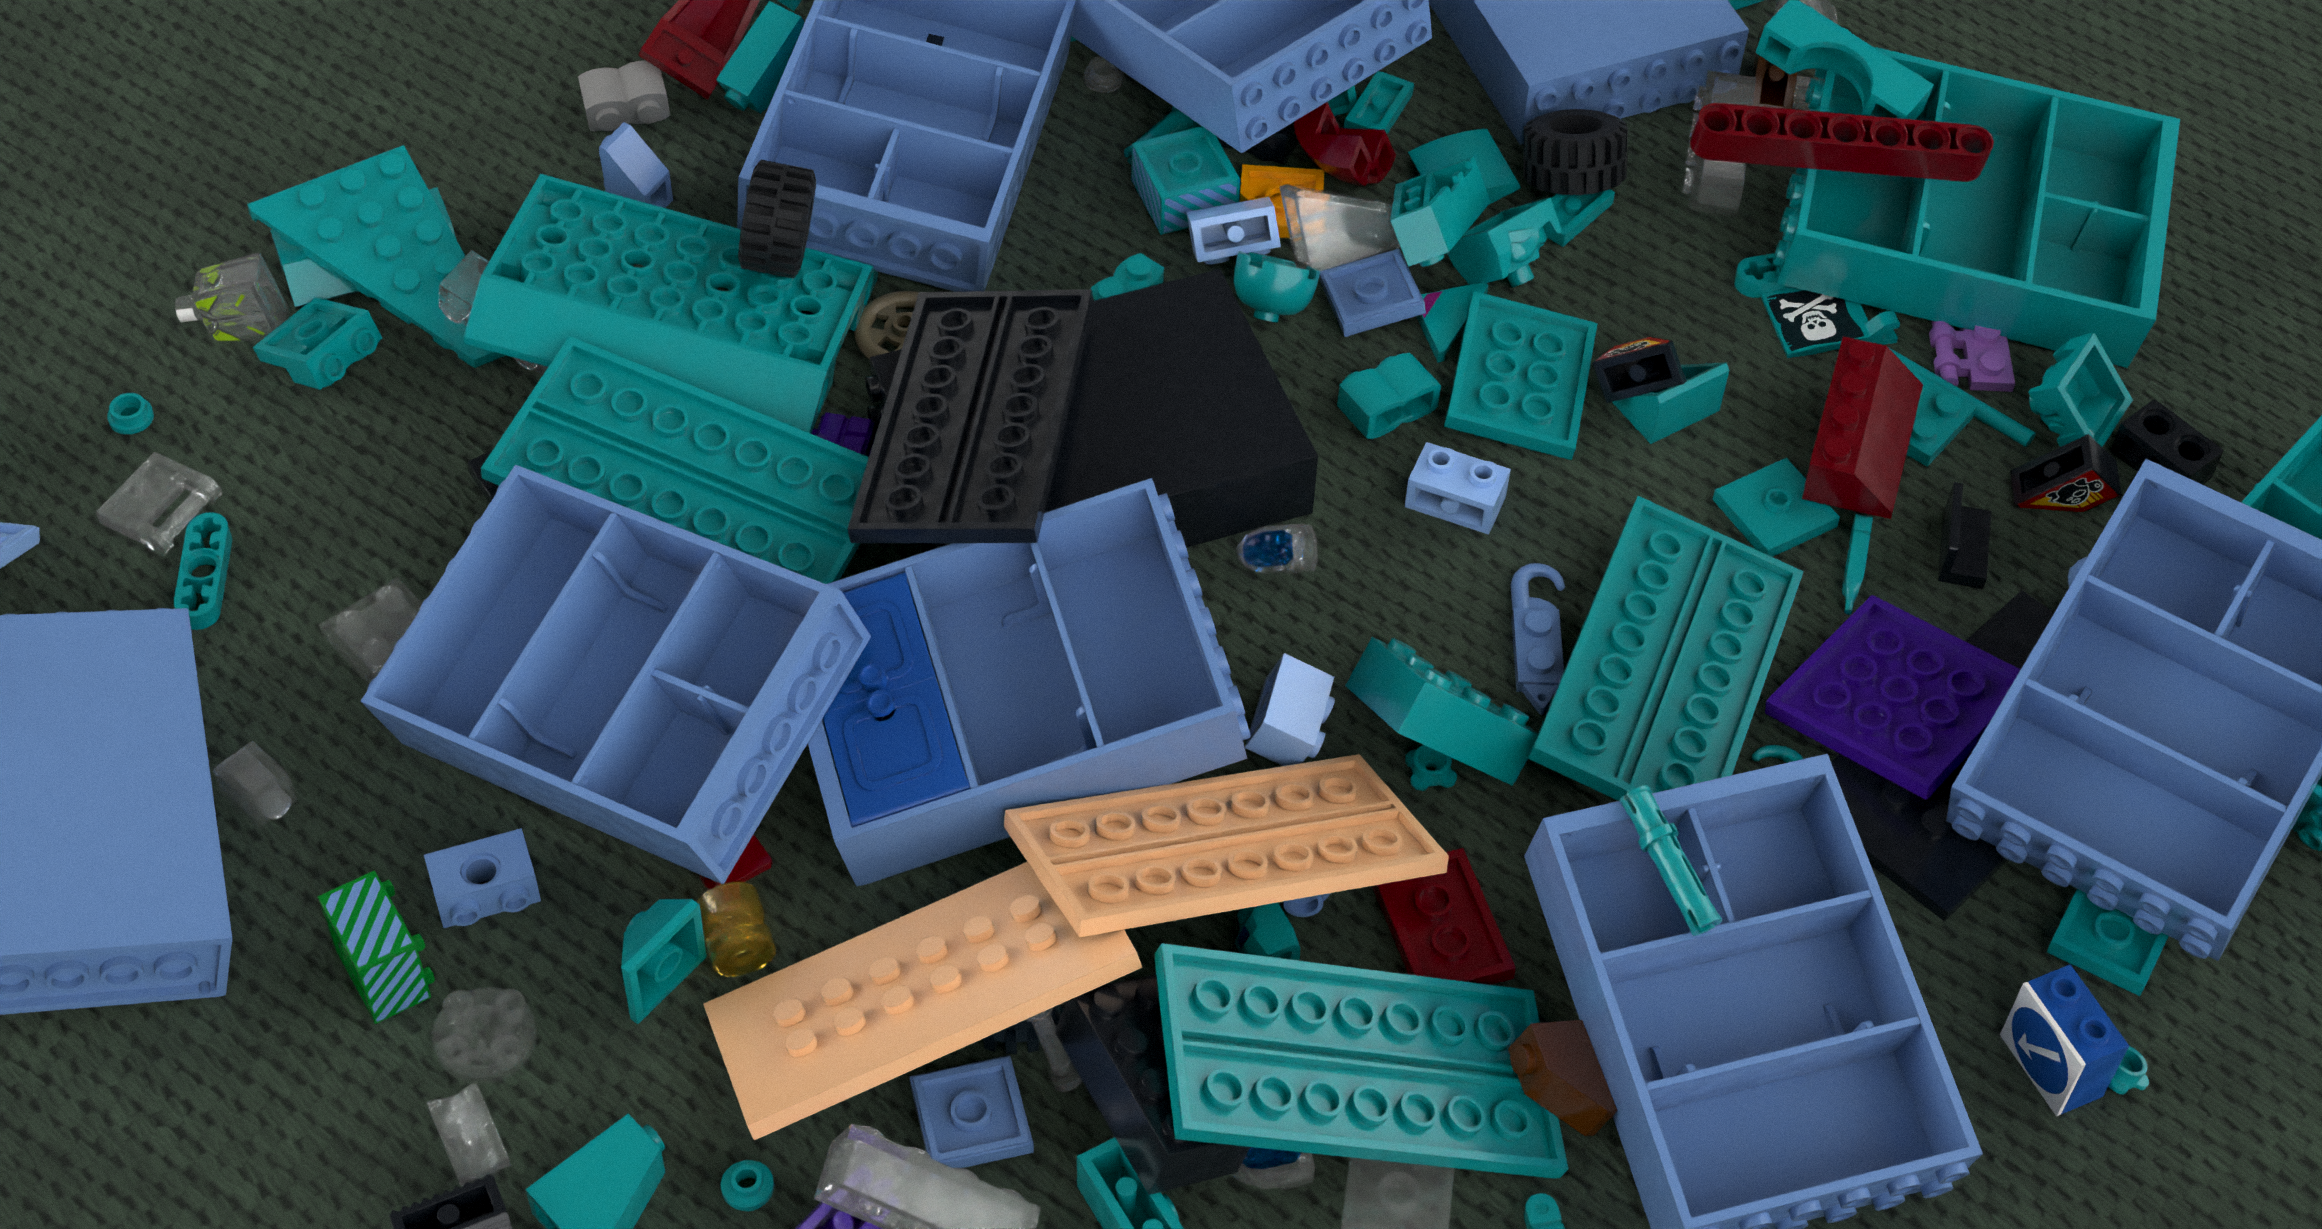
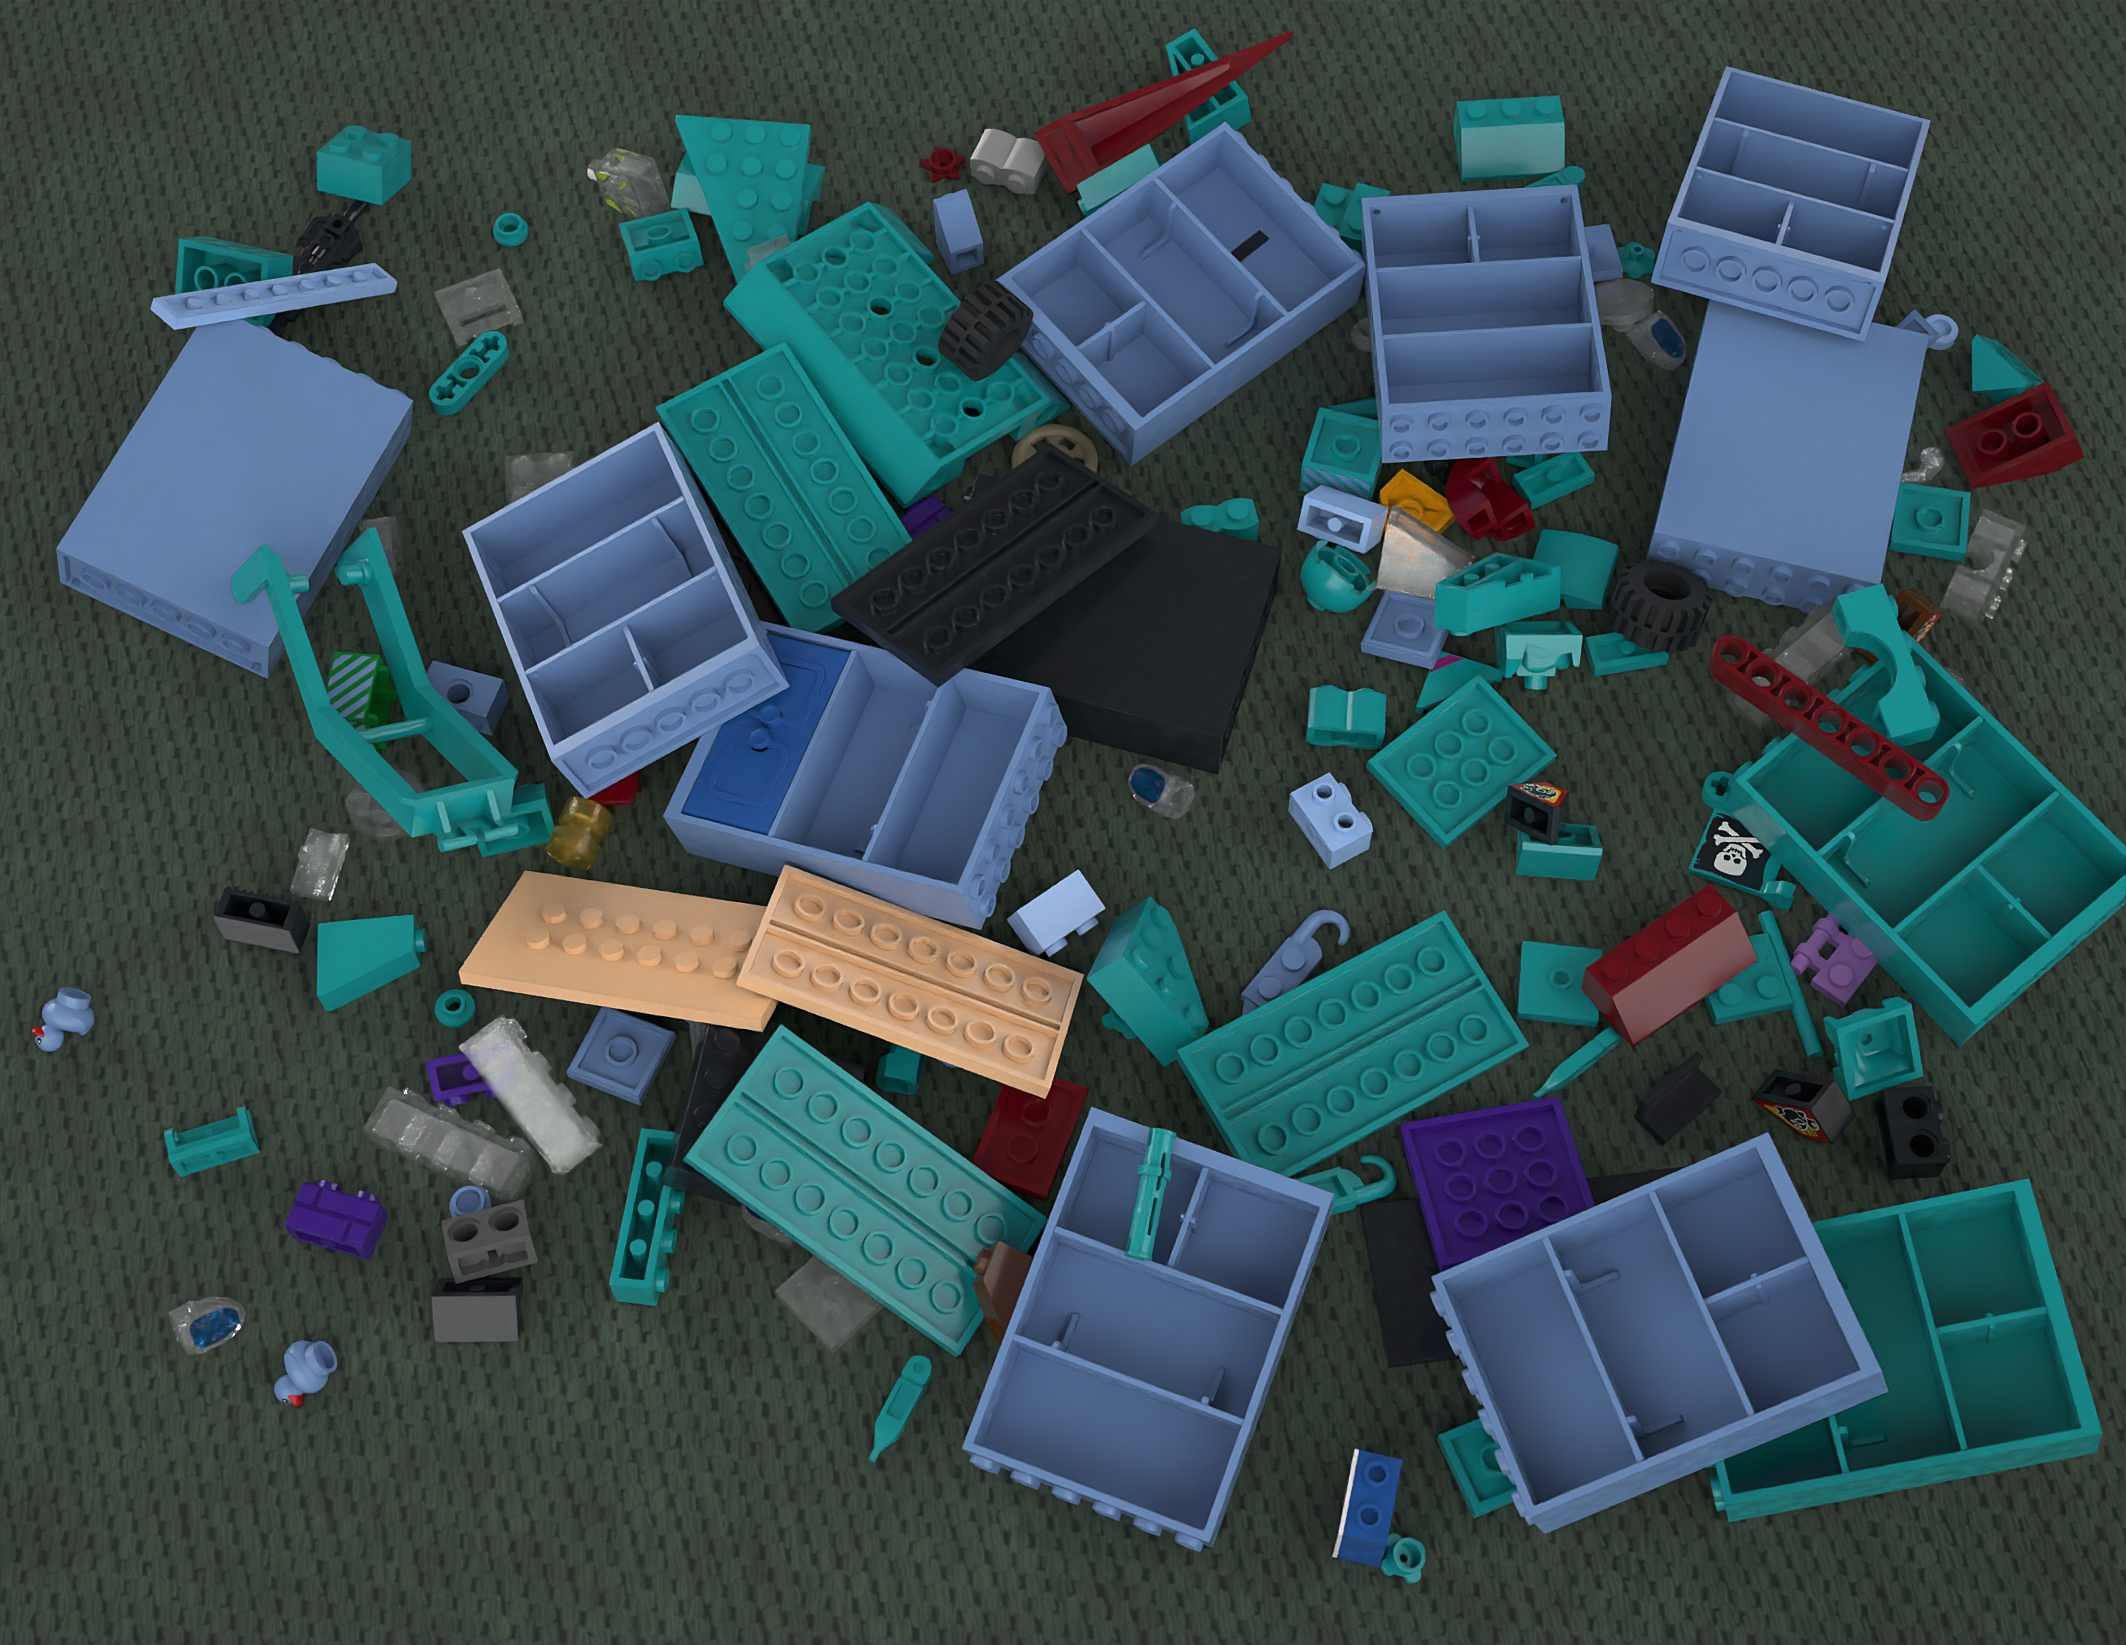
camera: 40 degrees right, 10 degrees up
(552, 134) = (940, 157): none -> dark red plate
(620, 916) = (453, 813): none -> teal piece

